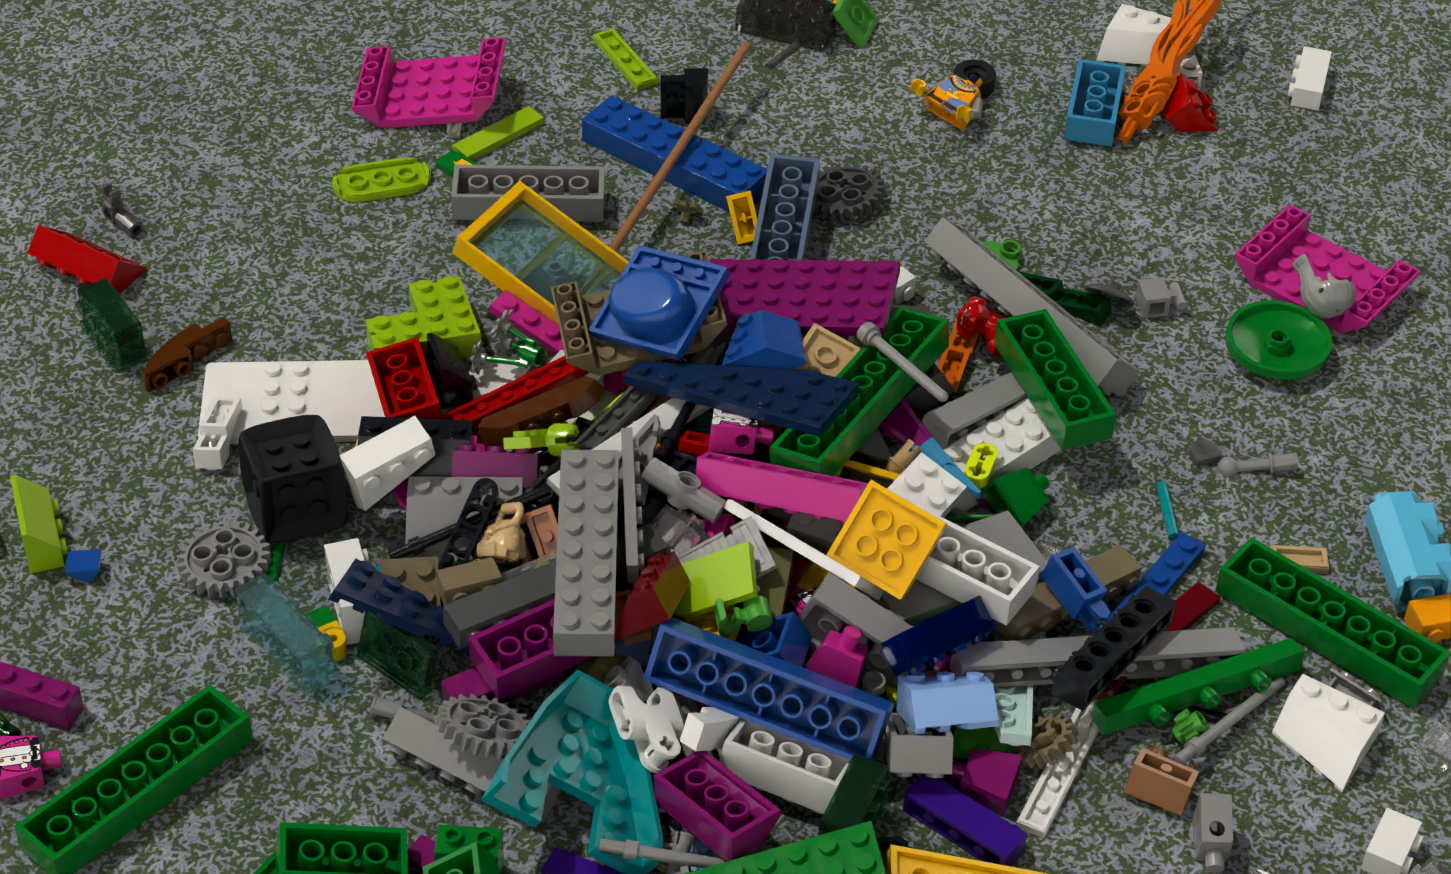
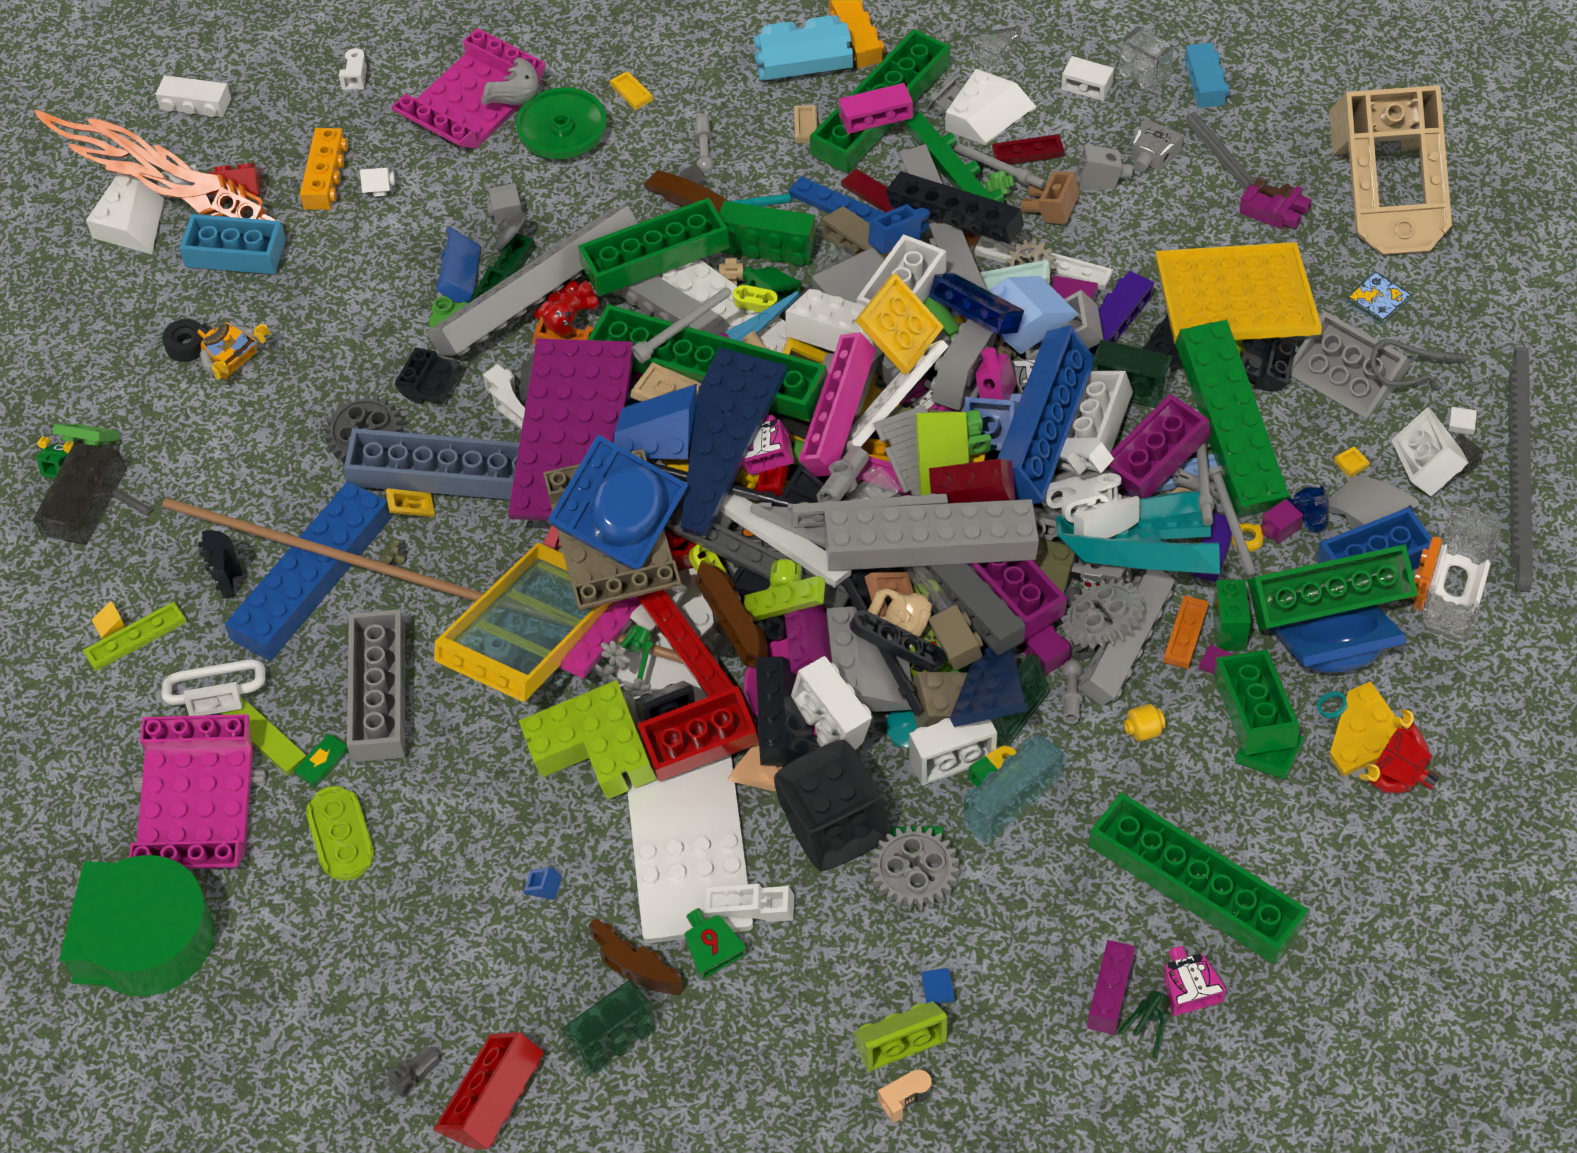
camera: 90 degrees left, 10 degrees up
(181, 401) = (712, 943): none -> green torso
(289, 304) = (543, 883): none -> blue slope
(307, 55) = (137, 926): none -> green brick
(350, 769) = (1144, 722): none -> yellow head
(448, 814) = (1186, 632): none -> orange plate
(535, 99) = (213, 698): none -> white bar
(605, 734) = (1107, 518): none -> white slope
(644, 44) = (108, 621): none -> yellow slope
(906, 232) = (427, 376): none -> black brick
(1050, 467) = (732, 270): none -> tan gear
(1065, 258) = (458, 267): none -> blue piece
(1096, 495) = (769, 233): none -> green brick
(1171, 440) = (681, 190): none -> reddish brown slope
(1188, 200) = (377, 180): none -> white brick
(1208, 166) = (323, 169): none -> light orange brick
(1256, 768) = (1028, 149): none -> dark red plate
(1290, 591) = (875, 108): none -> dark pink brick
(1347, 409) = (631, 90): none -> yellow tile
(1360, 190) = (355, 70): none -> white leg

